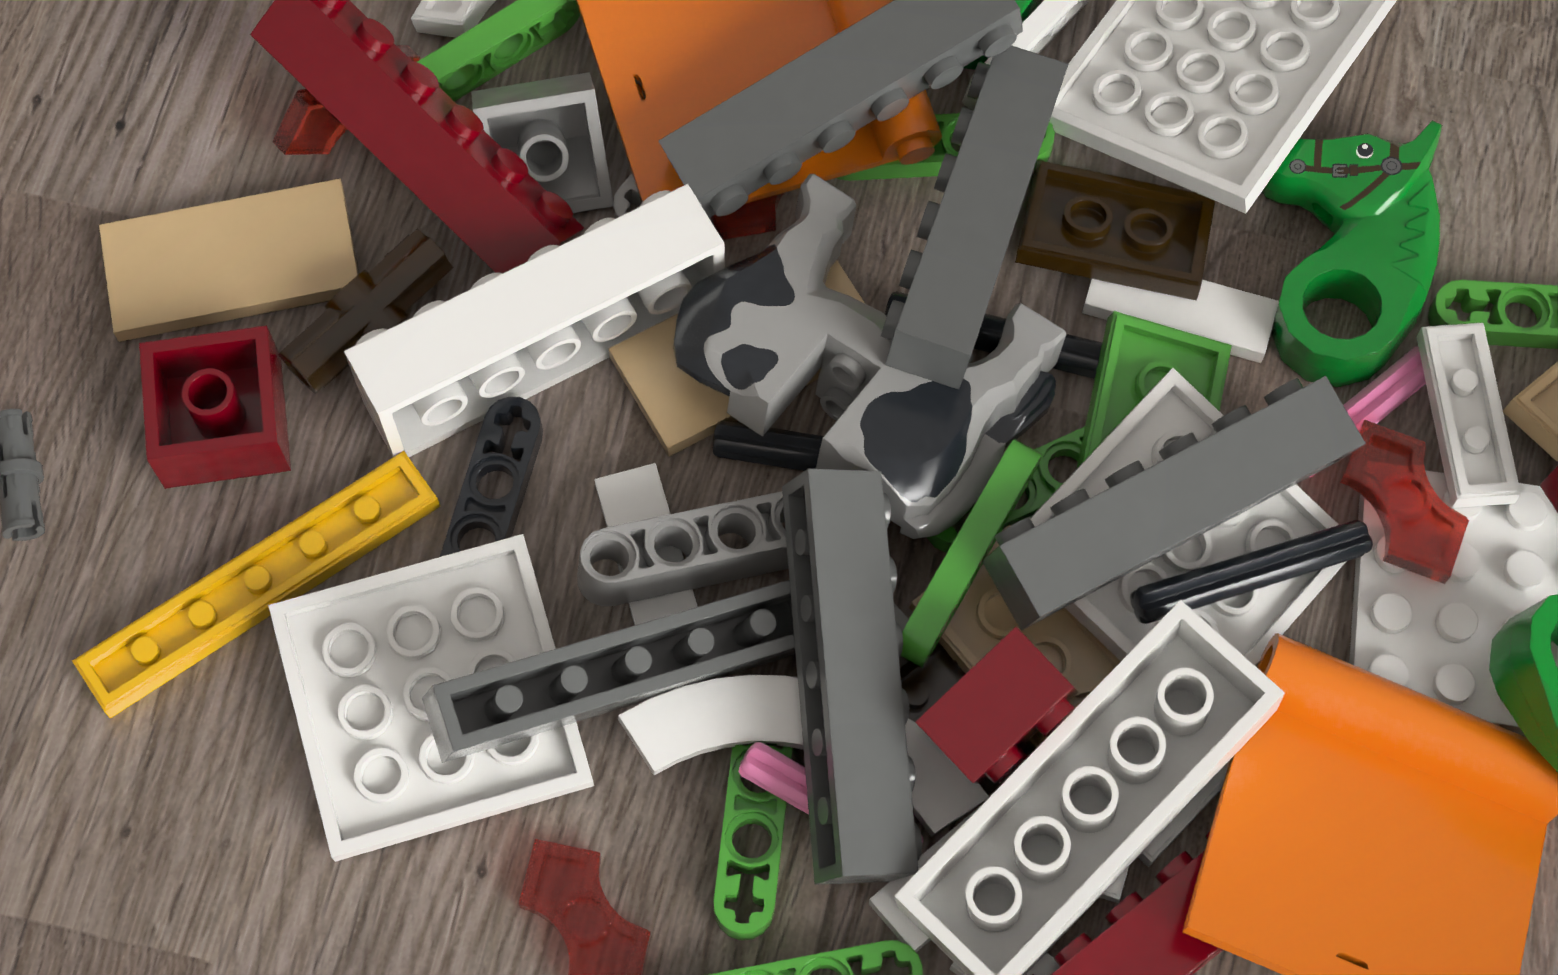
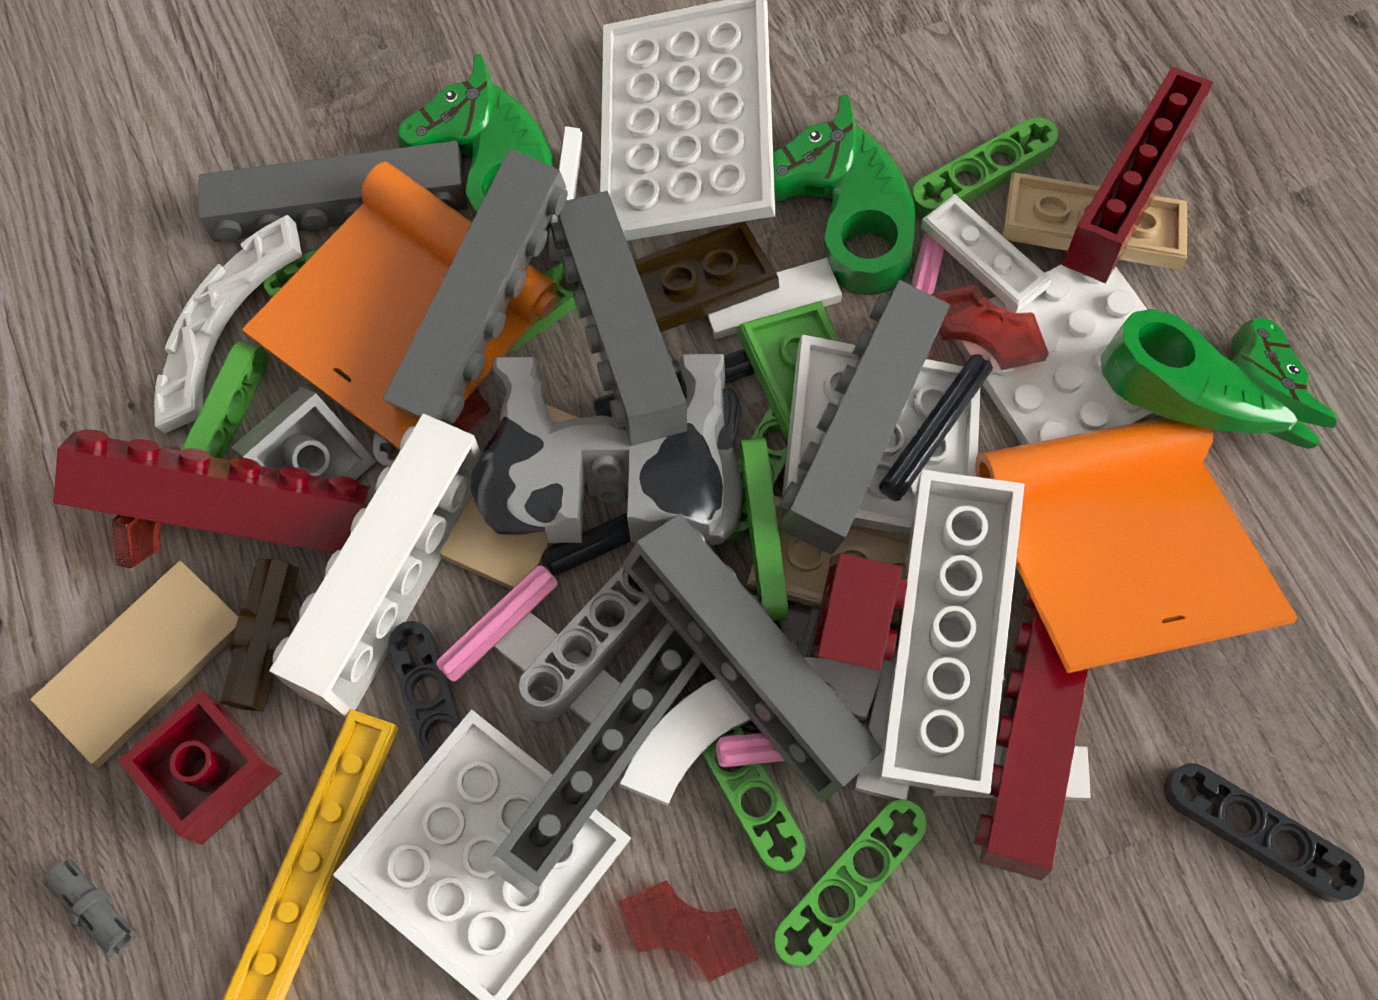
camera: 30 degrees left, 0 degrees up
(615, 463) = (496, 623): none -> bright pink axle

